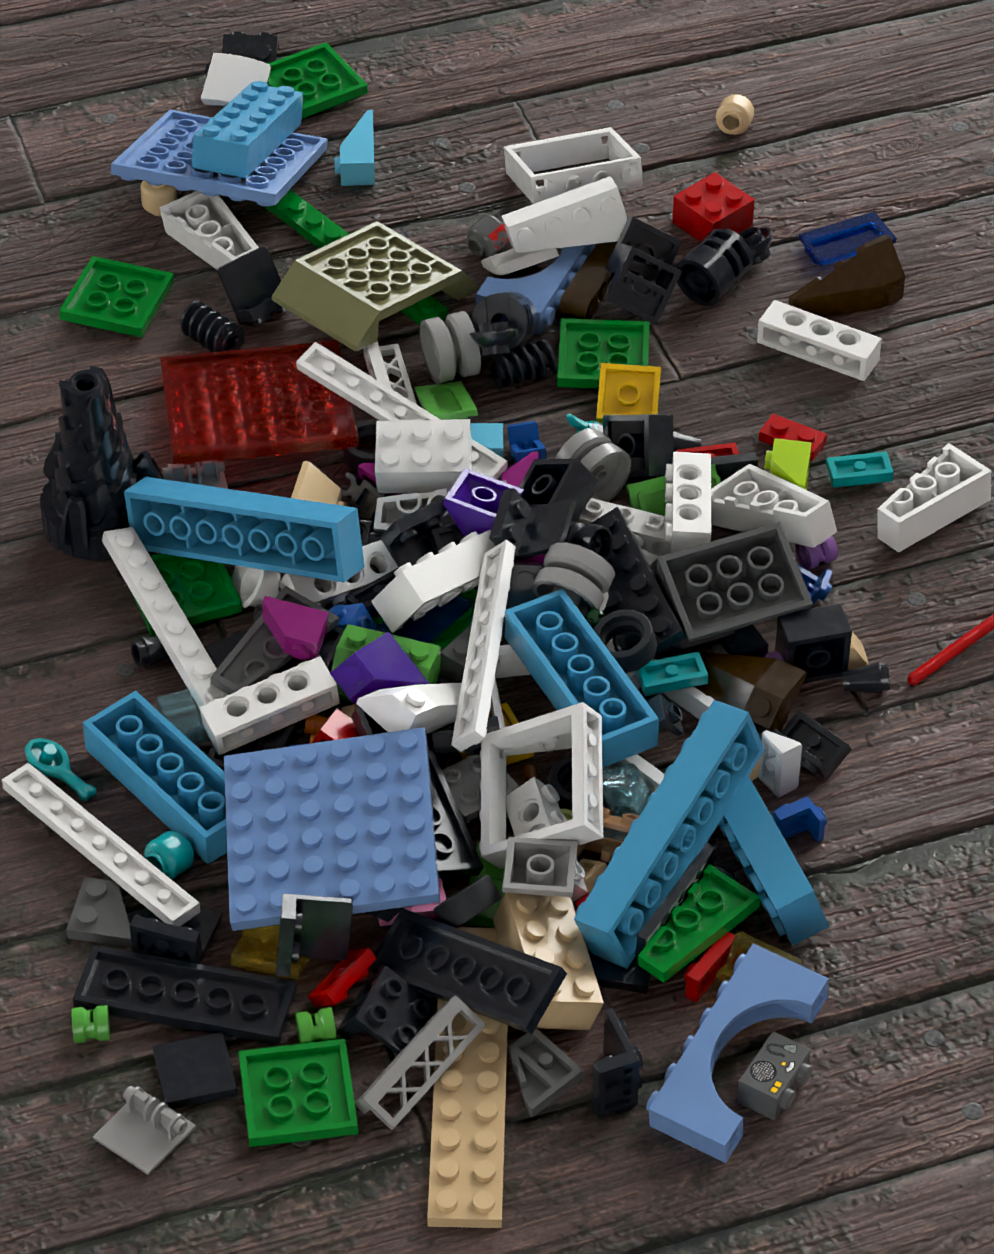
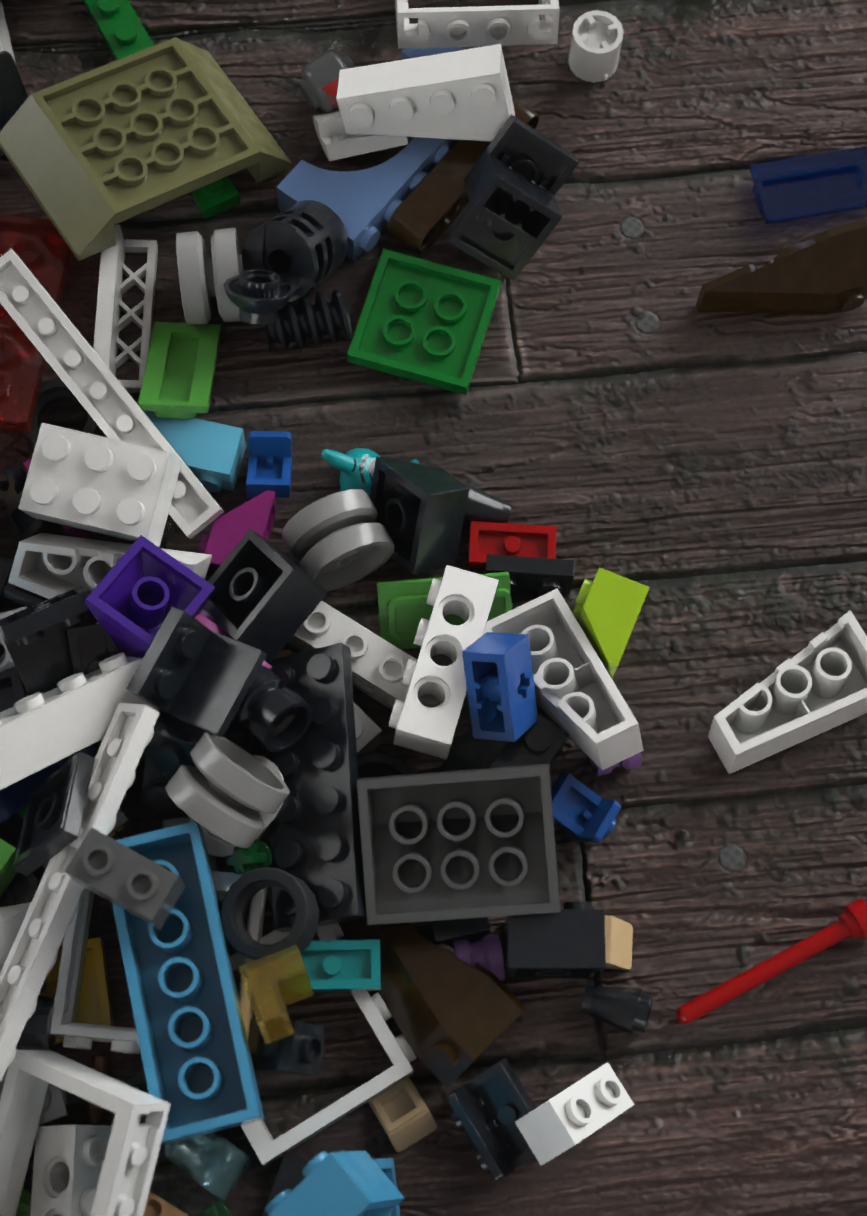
camera: 10 degrees right, 25 degrees up
(461, 618) = (53, 814): none -> black tile
(531, 611) = (125, 878): none -> dark grey brick
(628, 390) = (433, 408): yellow plate -> none
(645, 669) = (271, 986): none -> clear yellow piece
(665, 182) = (595, 46): none -> white piece
(711, 206) = (645, 101): red brick -> none
(720, 262) = (630, 199): black cylinder -> none
(731, 503) = (500, 686): none -> blue brick
(780, 763) = (438, 1164): white slope -> none
(783, 428) = (641, 524): red plate -> none
(819, 340) = (729, 383): white brick -> none
(858, 721) = (574, 1114): none -> white brick
(859, 469) = (716, 609): teal plate -> none

